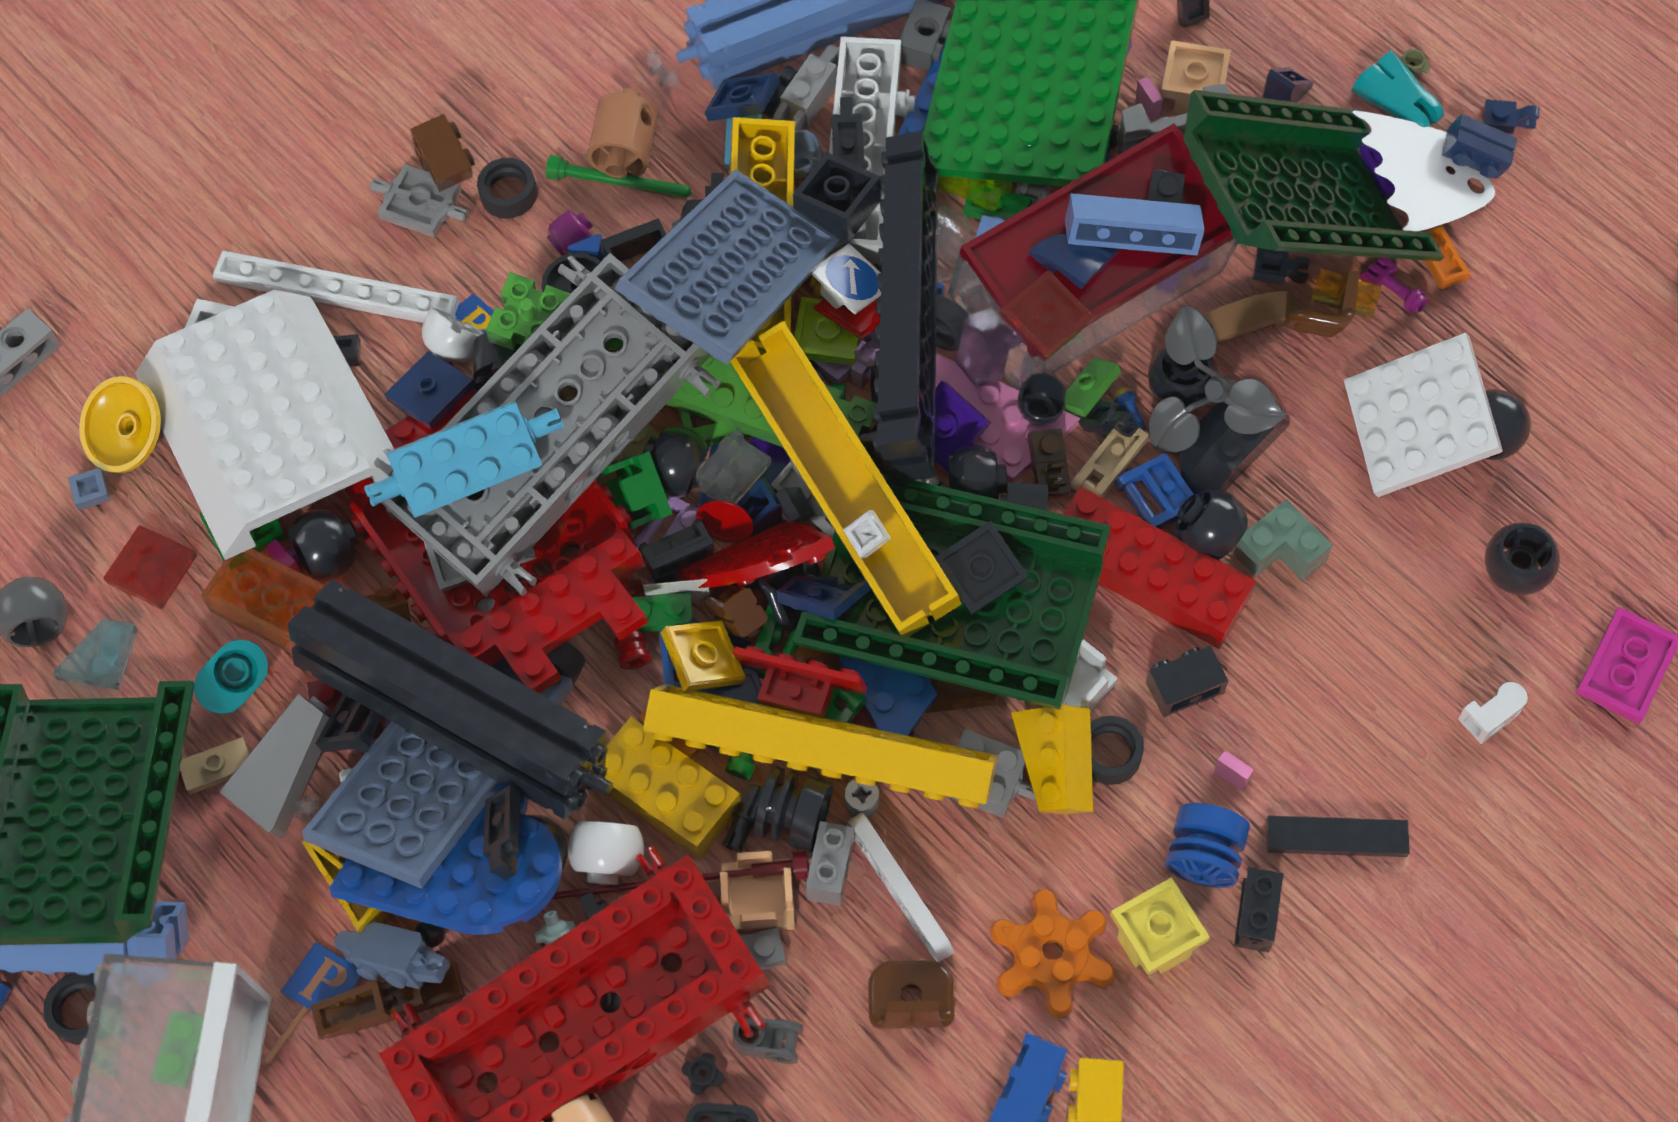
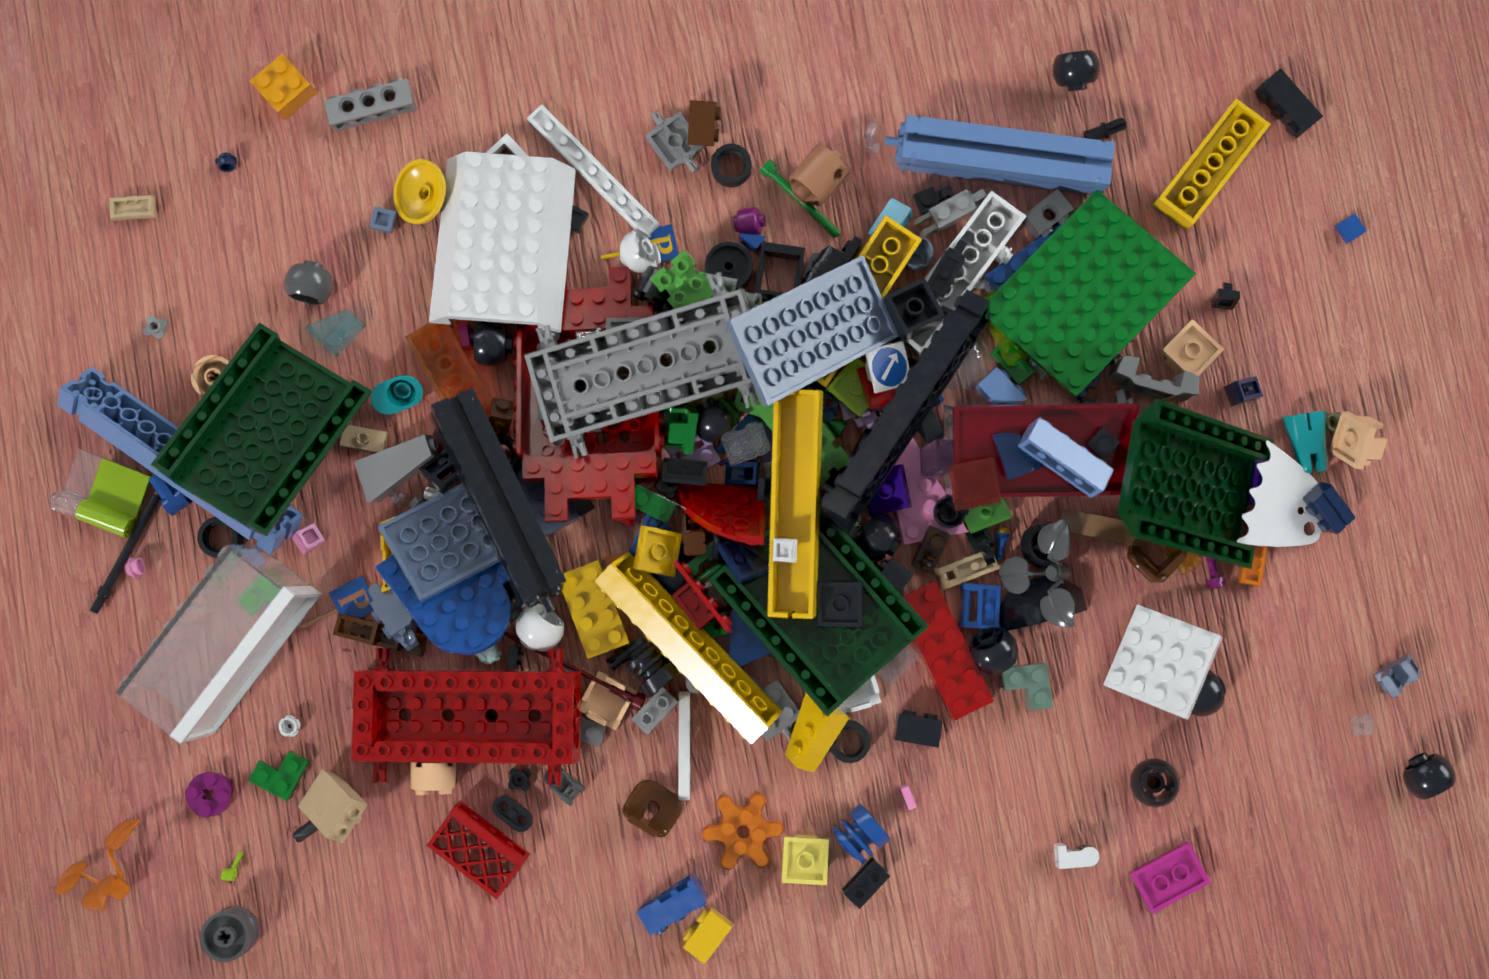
camera: 30 degrees right, 20 degrees up
(150, 566) = (392, 291): clear red plate -> none
(209, 939) = (308, 538): none -> bright pink slope
(429, 390) = (605, 282): dark blue plate -> none
(464, 458) = (582, 368): medium azure plate -> none
(502, 831) = (481, 597): black hinge -> none
(725, 521) = (723, 471): red piece -> none
(742, 96) = (907, 192): dark blue plate -> none
(1106, 621) = (898, 665): none -> clear bracket
(1149, 97) = (1153, 346): bright pink tile -> none
(1337, 836) = (938, 867): black tile -> none
(1452, 55) = (1355, 440): none -> light nougat panel
(1506, 117) = (1362, 493): dark blue plate -> none

